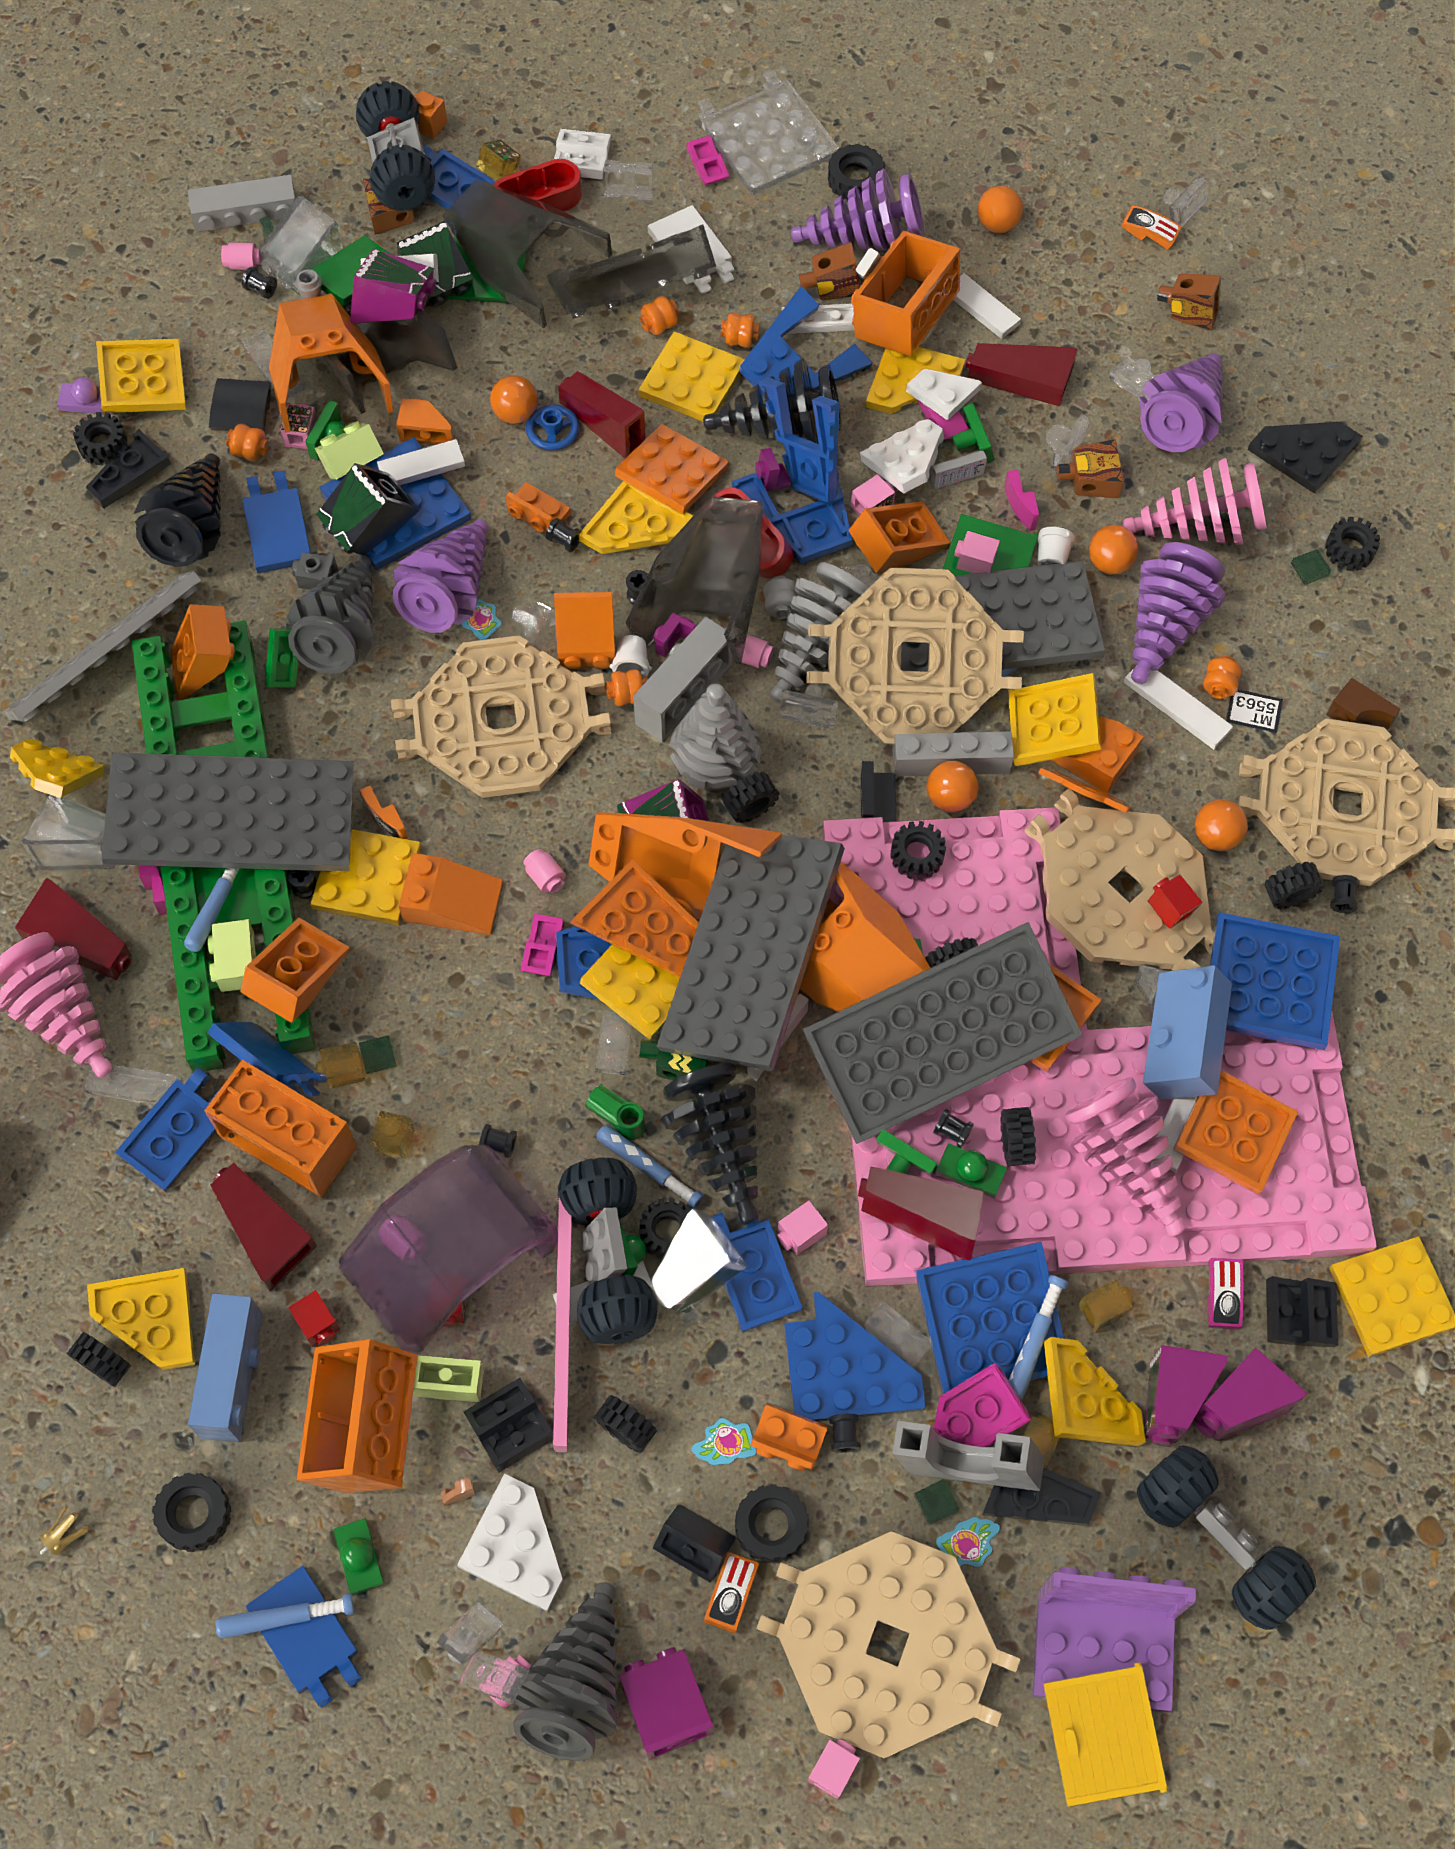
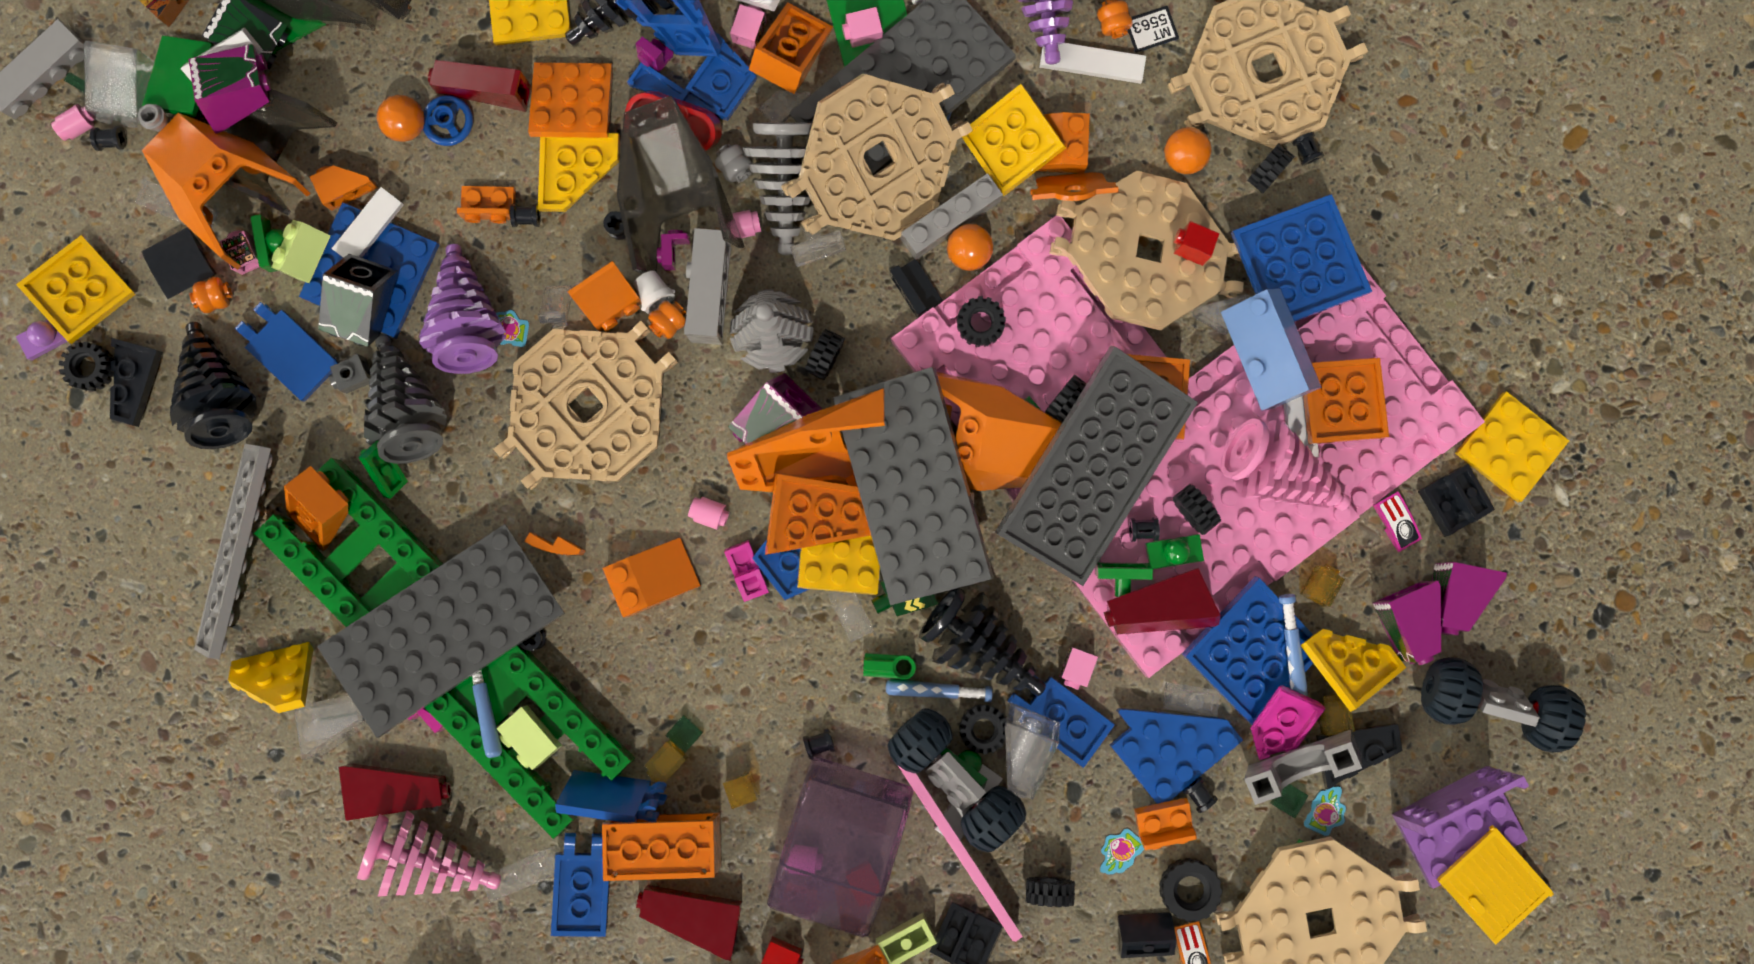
camera: 30 degrees left, 20 degrees up
(293, 969) = (584, 723): orange slope -> none
(373, 881) = (584, 597): yellow plate -> none

